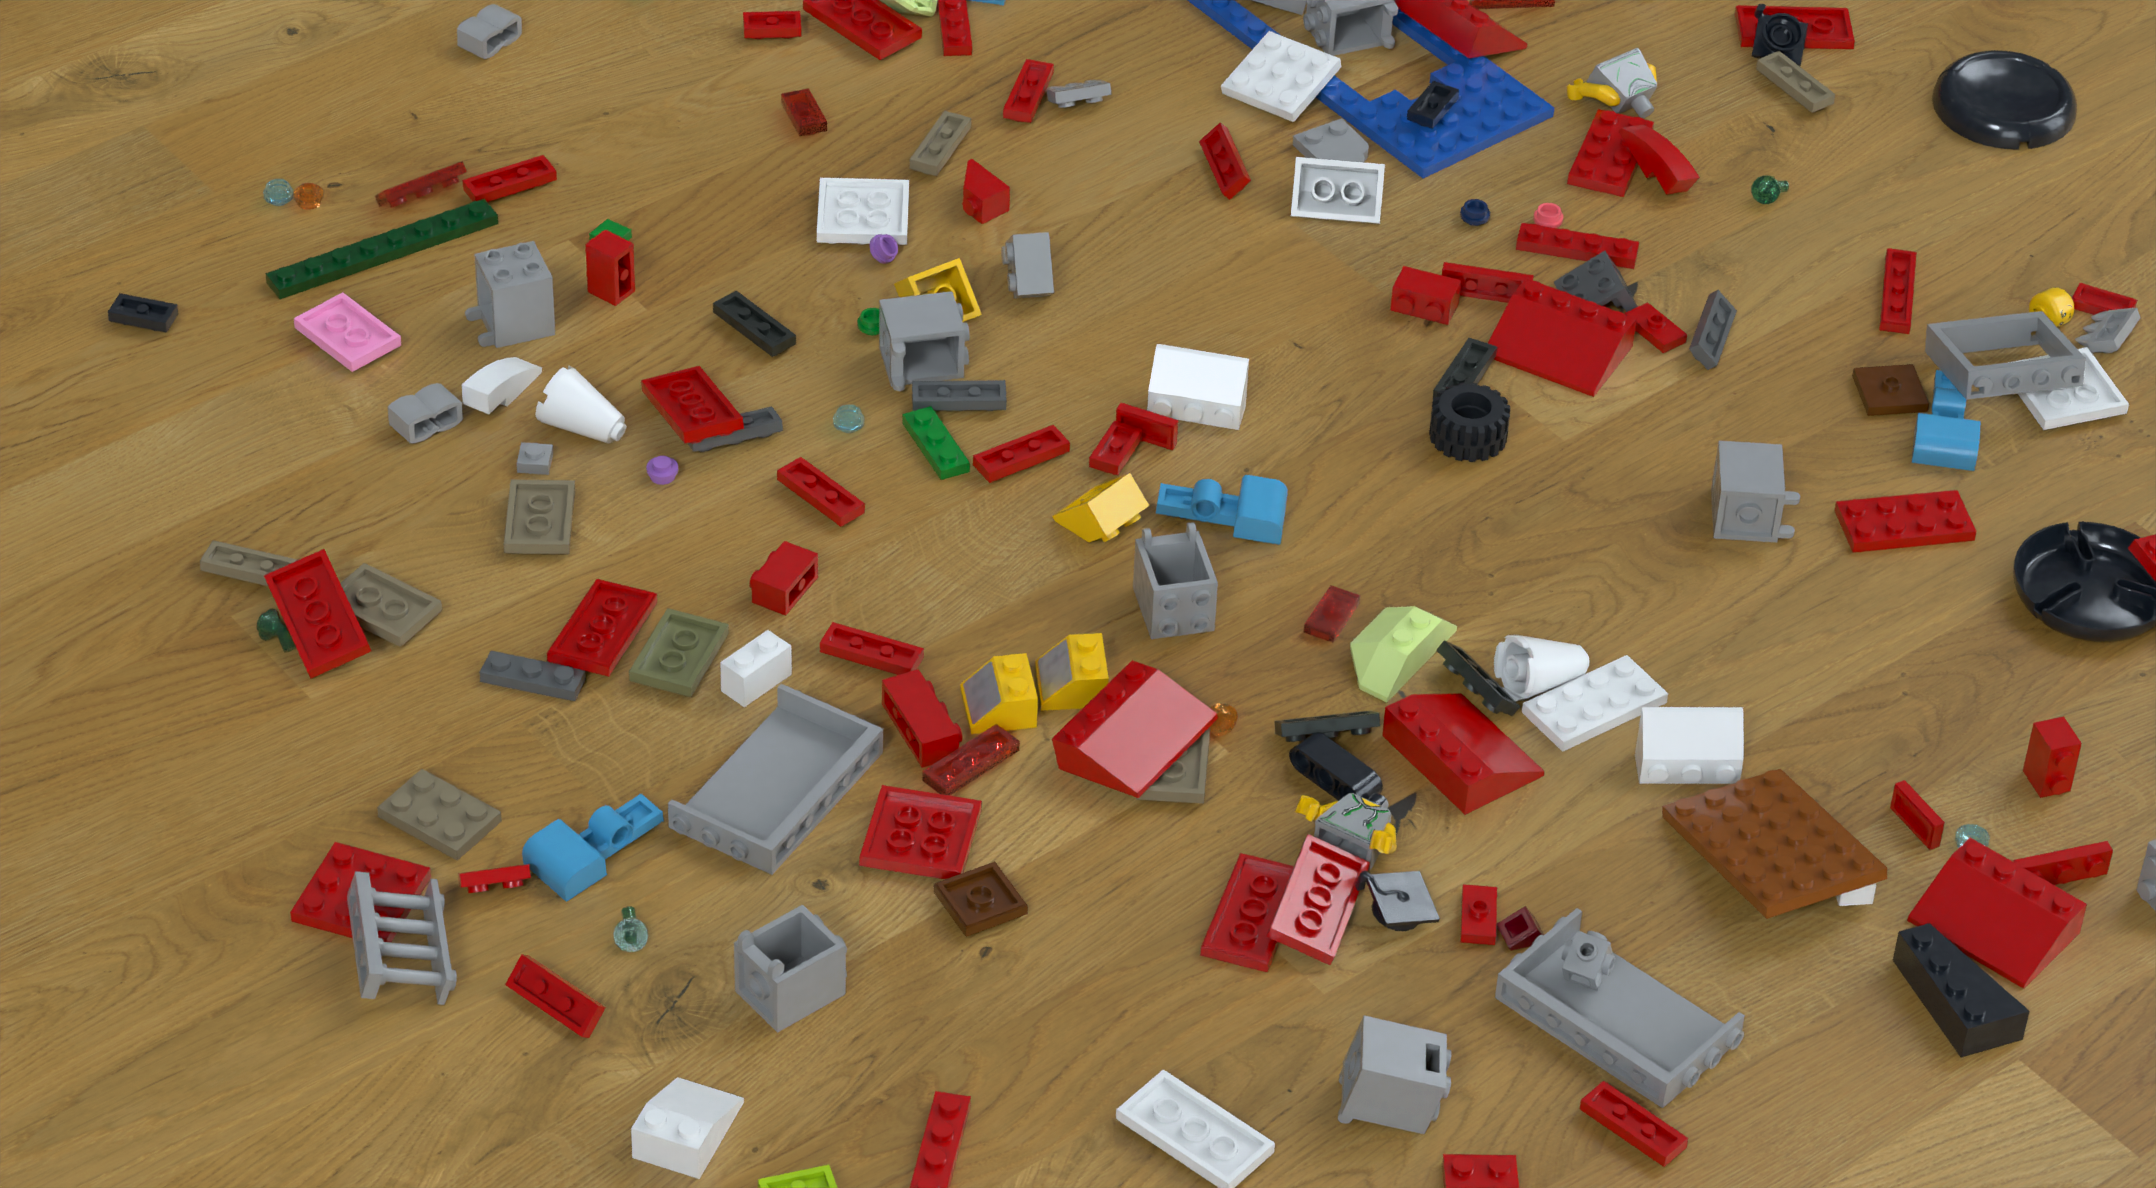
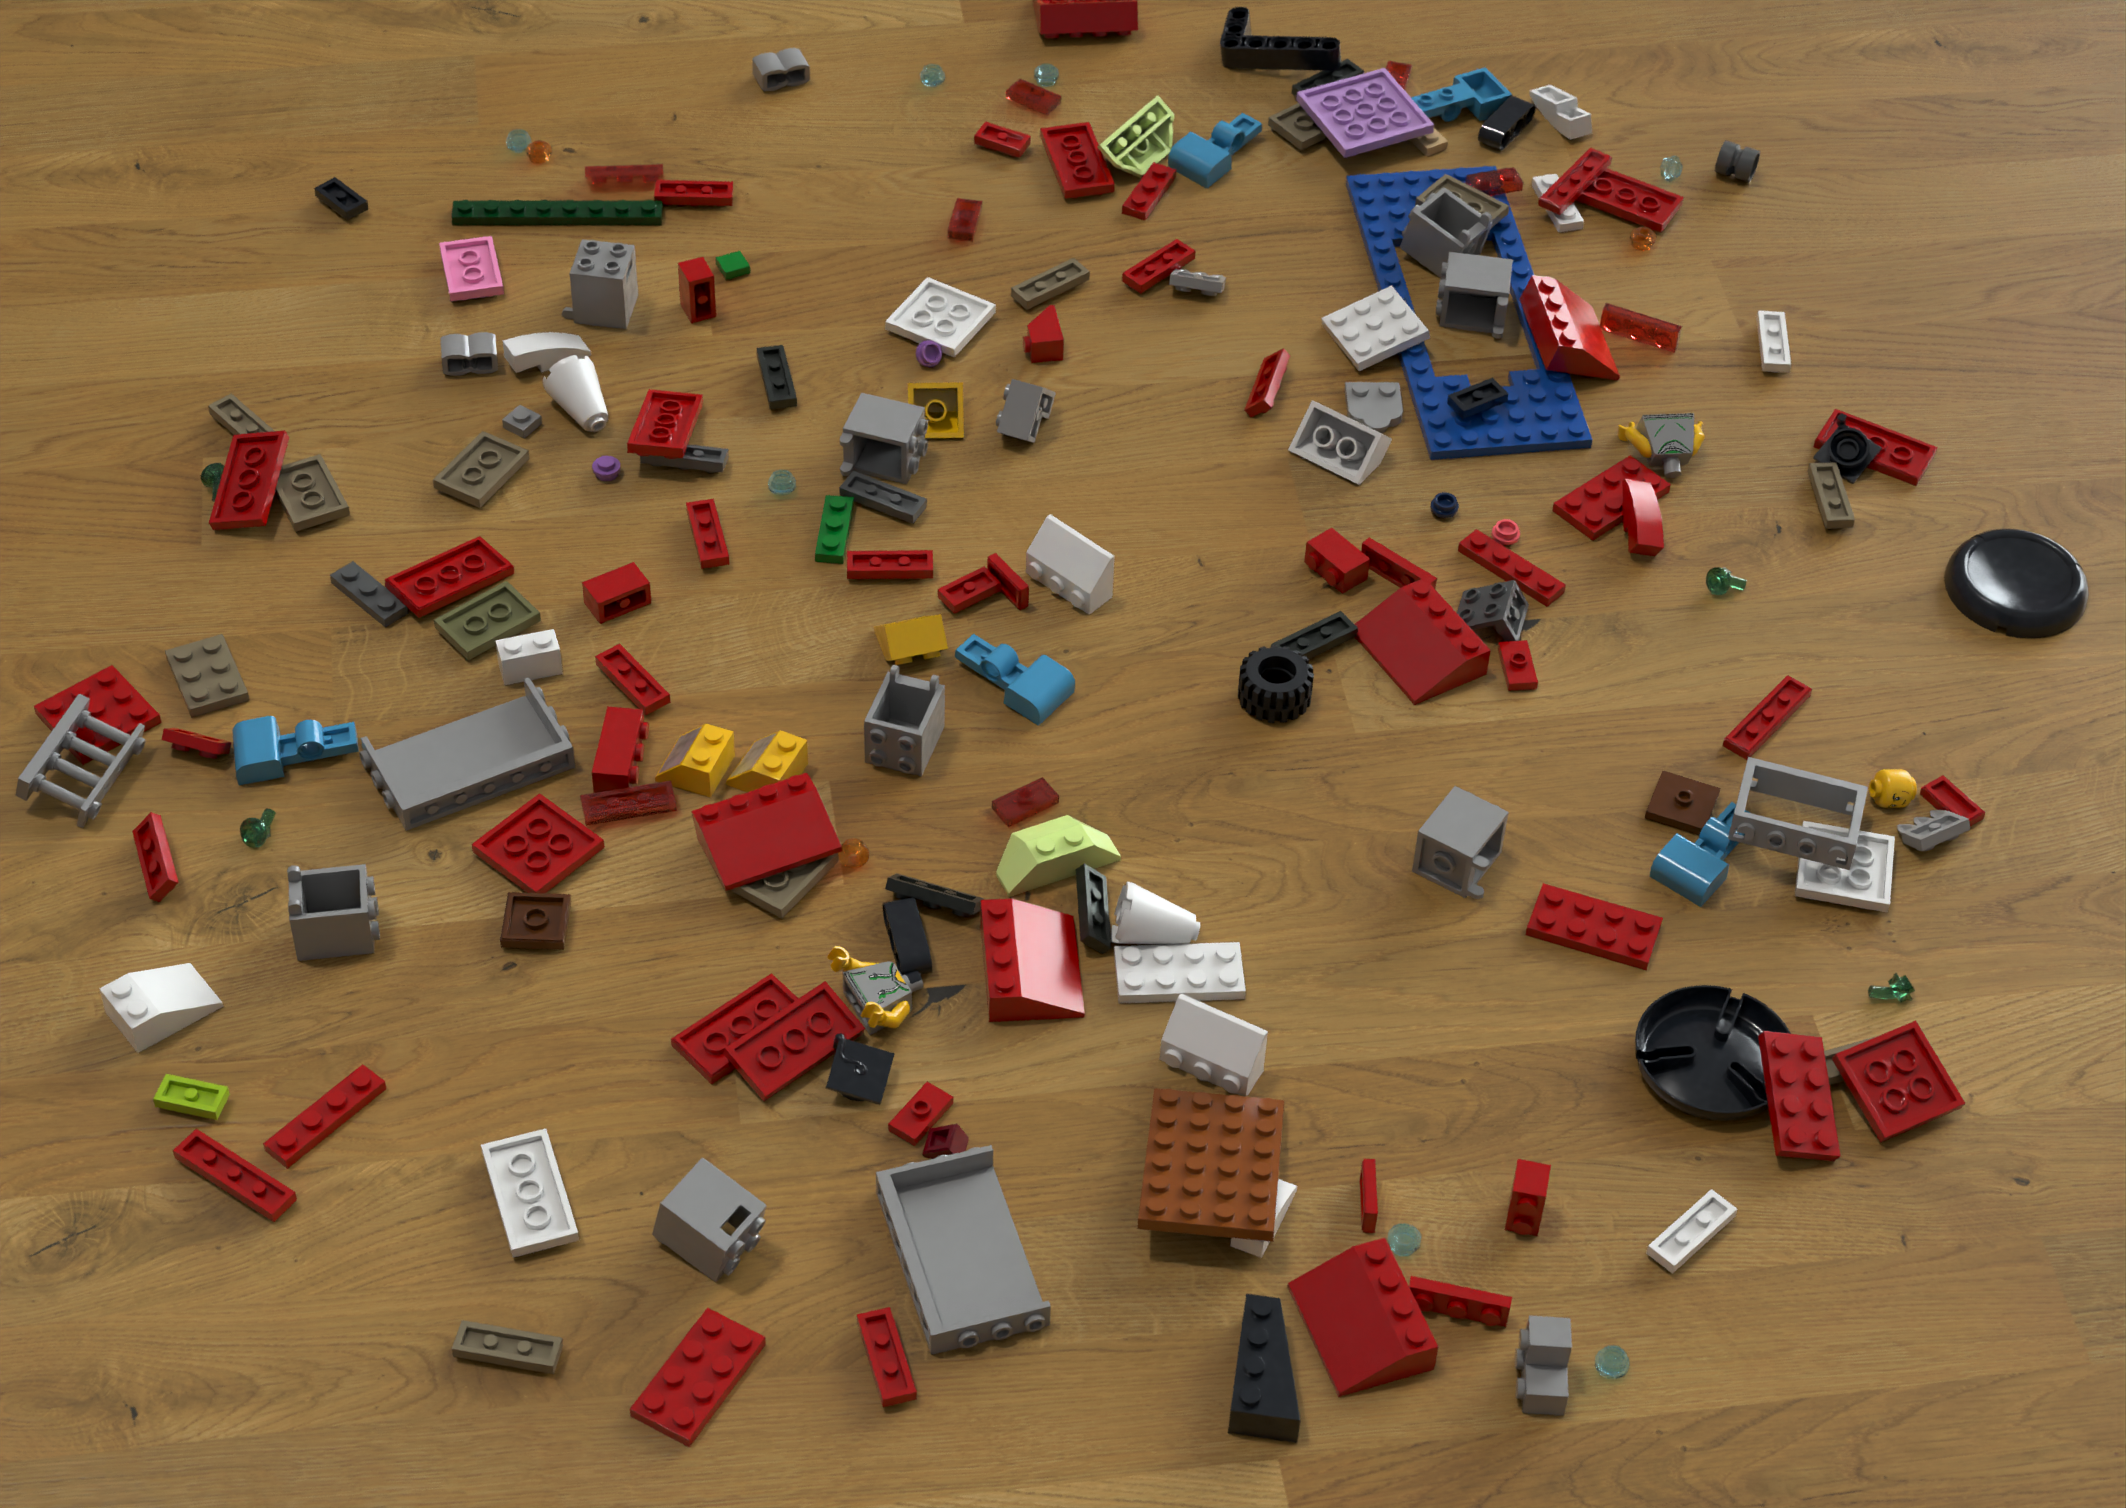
camera: 30 degrees right, 5 degrees up
(1587, 959) = (961, 1194): light grey brick -> none
(1712, 330) = (1562, 686): dark grey plate -> none

